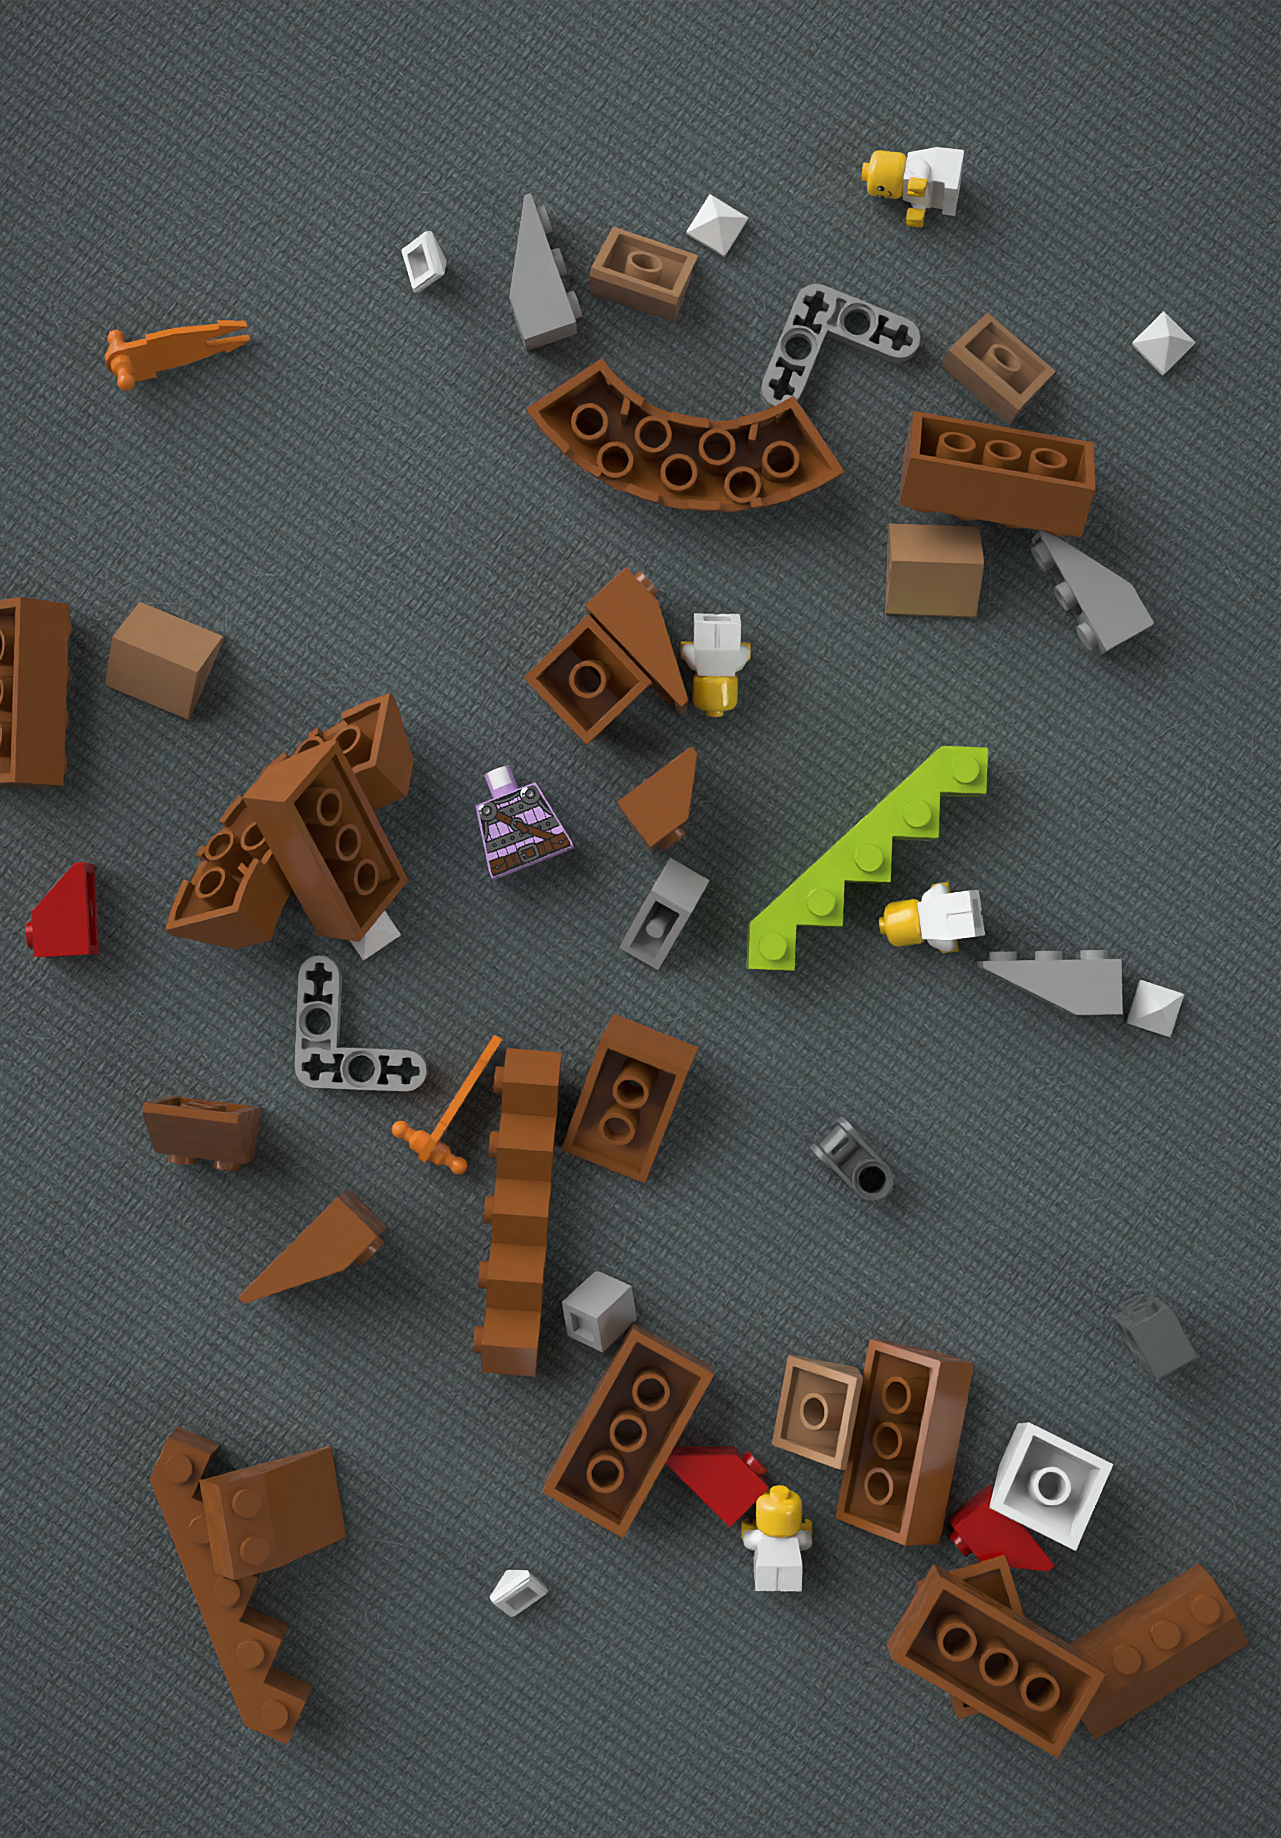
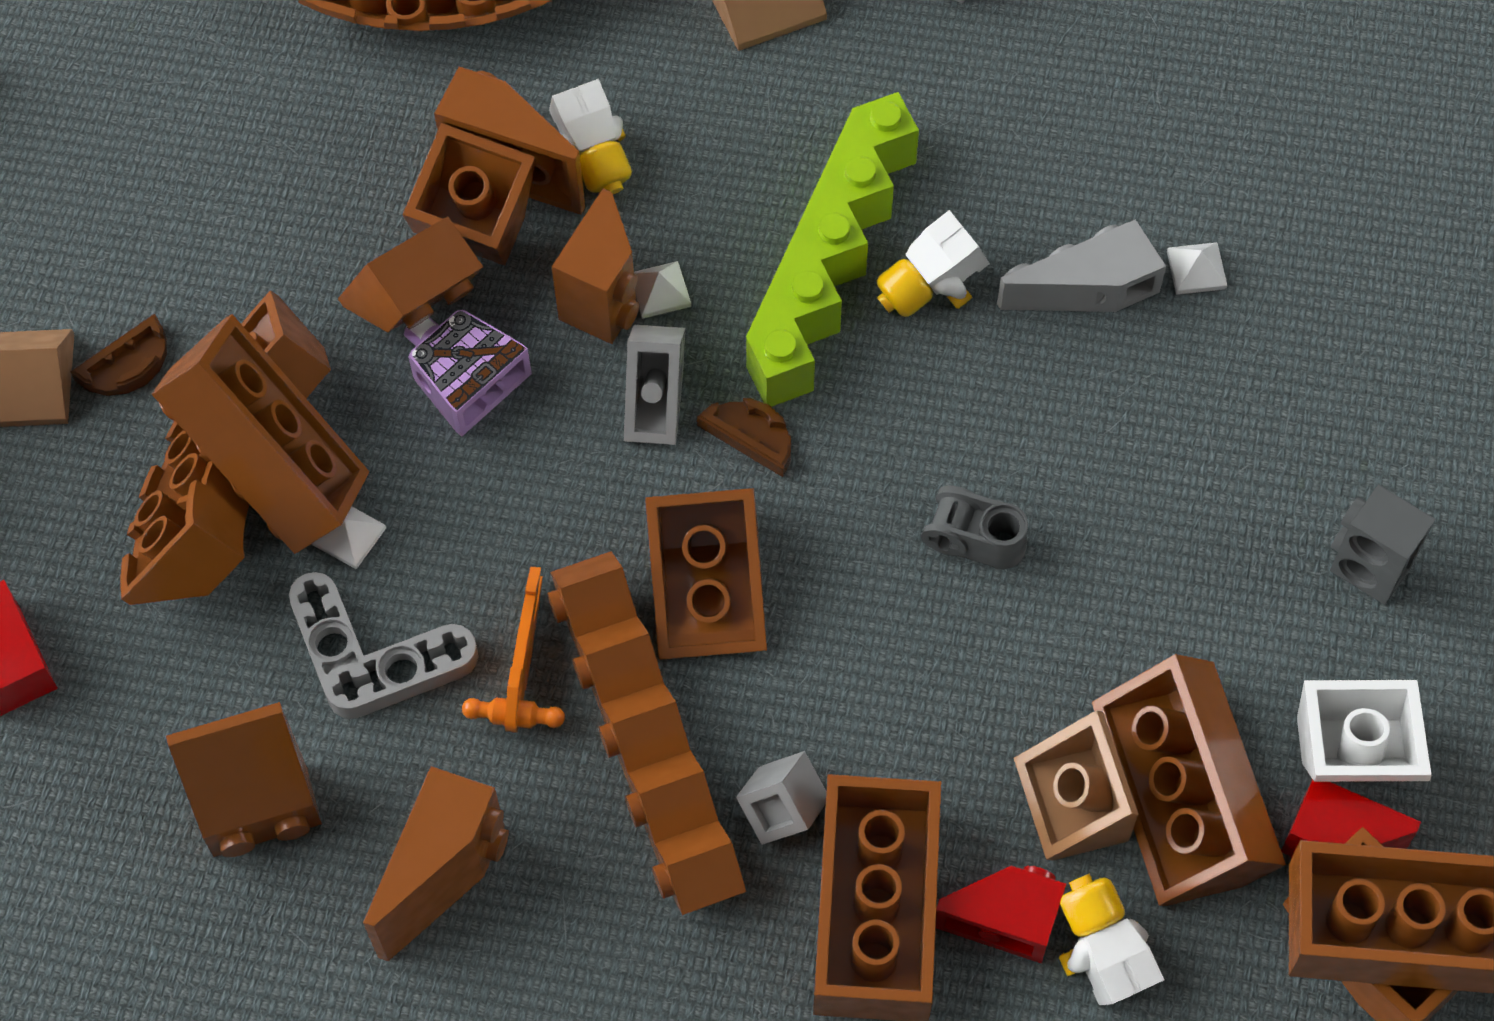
camera: 25 degrees left, 25 degrees down
(256, 688) = (126, 362): none -> reddish brown tile
(507, 739) = (413, 278): none -> dark orange slope
(710, 821) = (661, 290): none -> white slope
(724, 986) = (752, 430): none -> reddish brown tile

